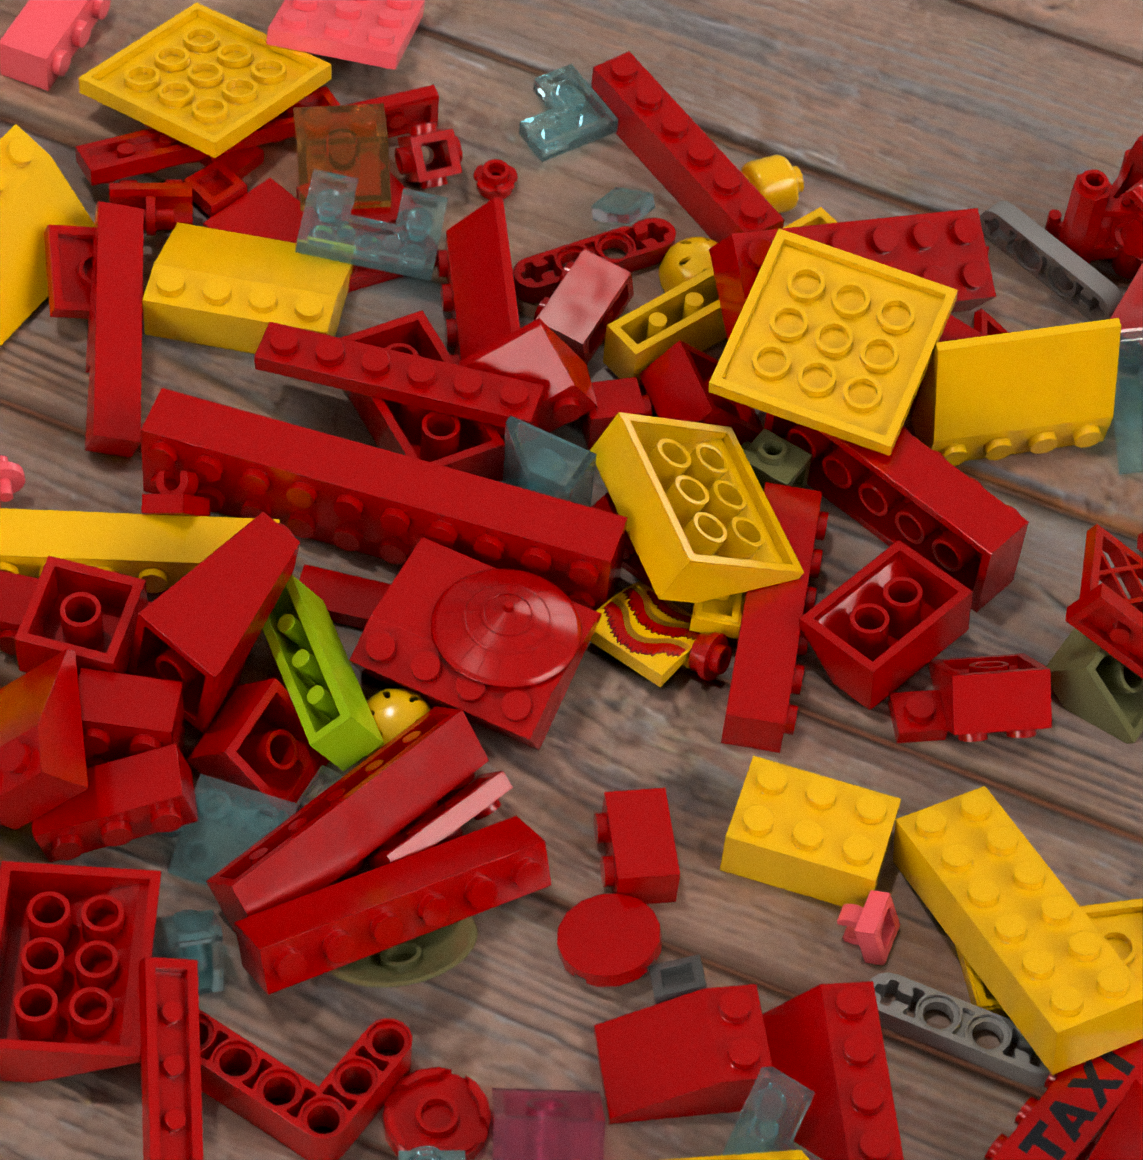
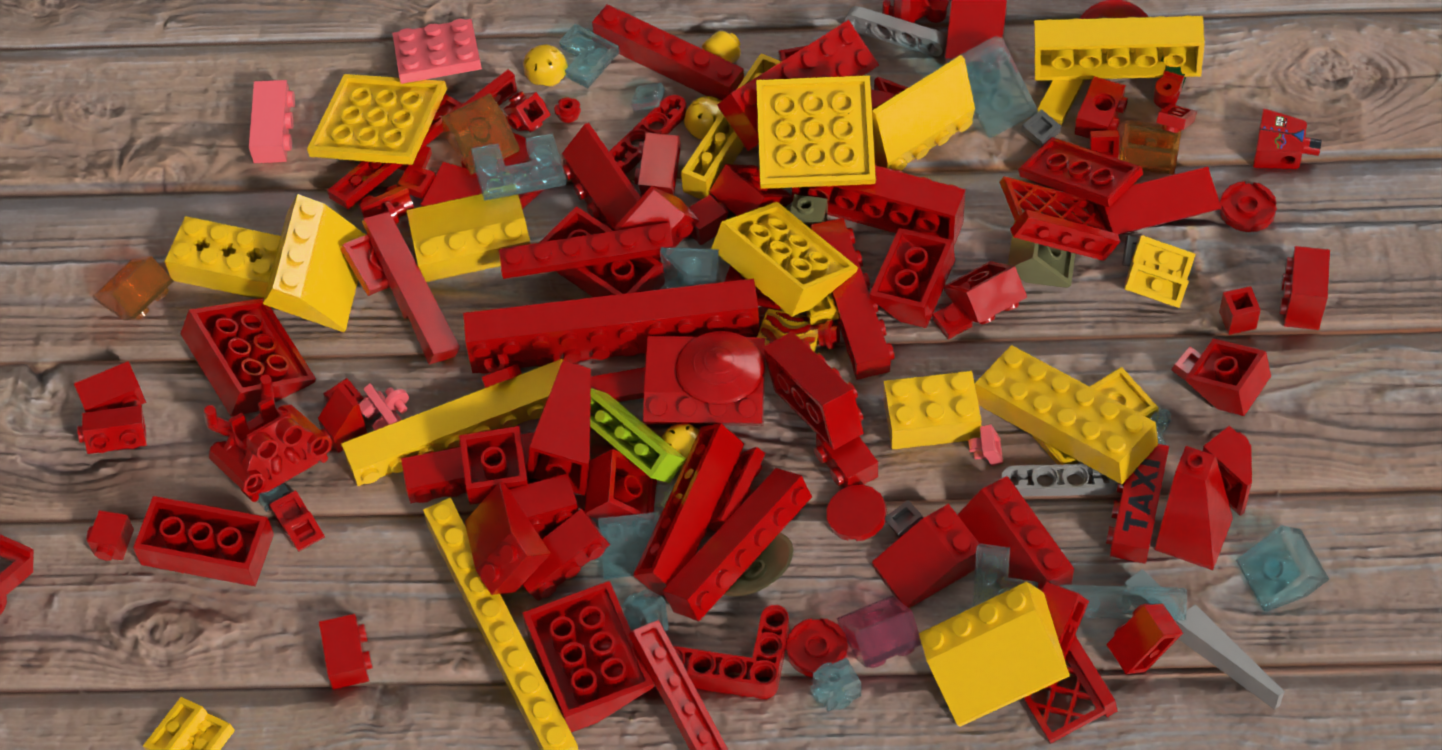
camera: 15 degrees left, 5 degrees up
(500, 105) = (541, 58): none -> yellow helmet
(634, 722) = (814, 390): none -> red brick

